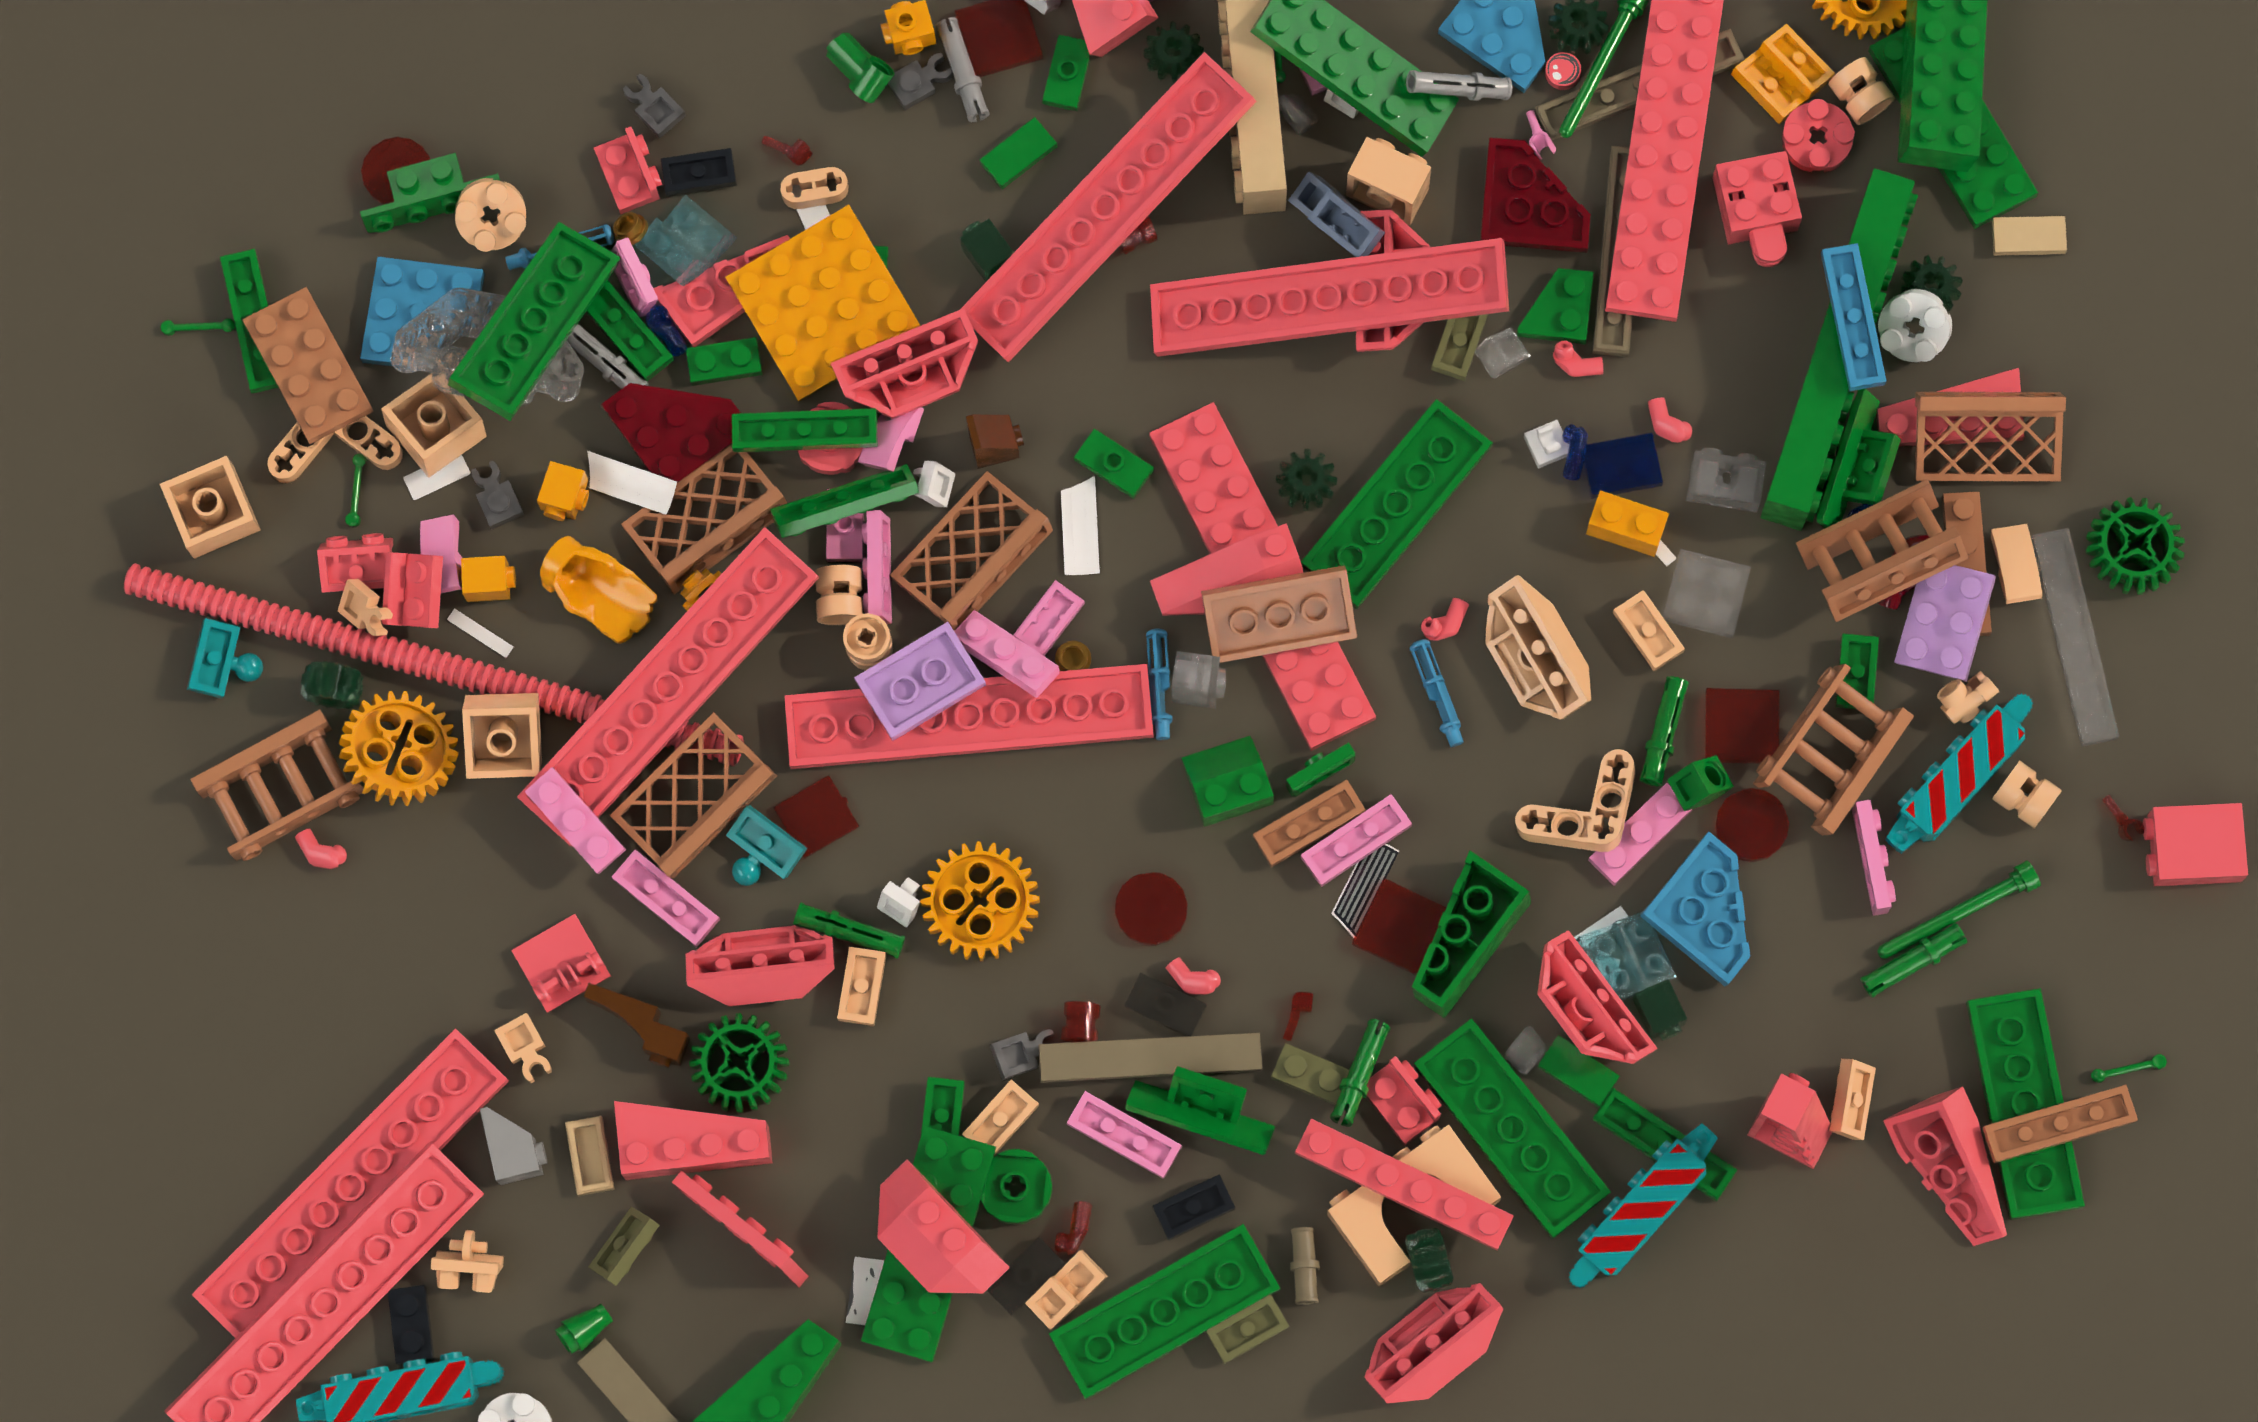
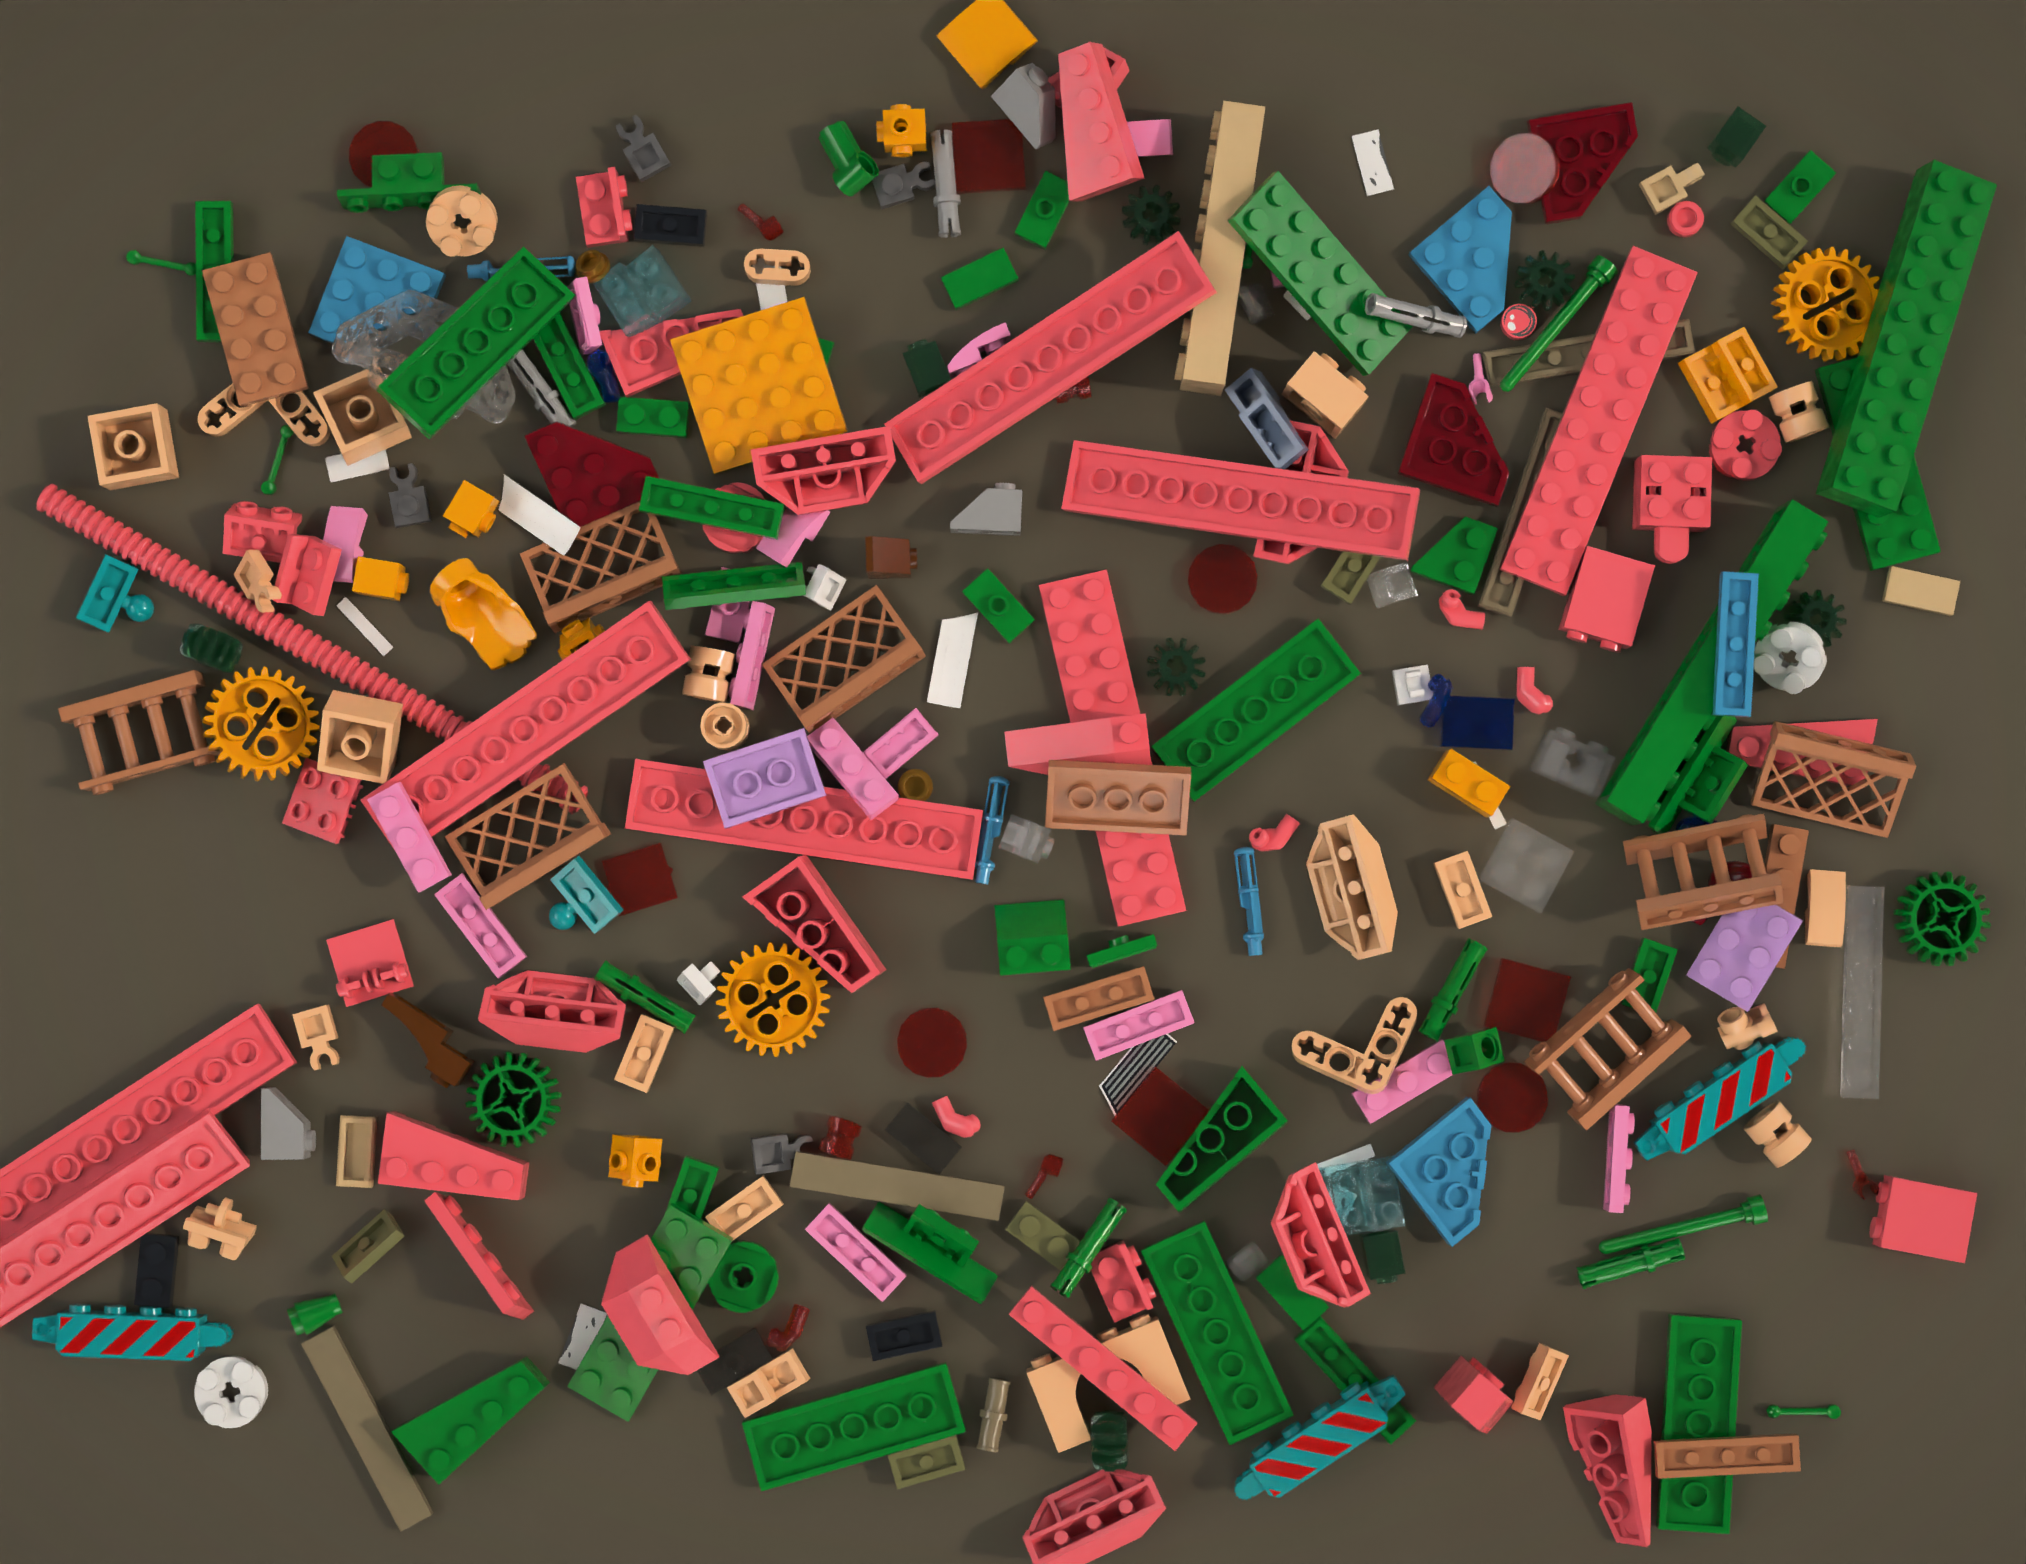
camera: 10 degrees right, 10 degrees up
(320, 855) = (167, 806): coral arm -> none
(477, 813) = (322, 803): none -> coral hinge
(877, 1091) = (635, 1159): none -> light orange brick
(996, 806) = (816, 922): none -> coral wedge
(1035, 213) = (970, 354): none -> bright pink slope
(1085, 374) = (992, 512): none -> light grey slope
(1331, 386) = (1222, 579): none -> clear red tile
(1718, 314) = (1606, 599): none -> coral brick

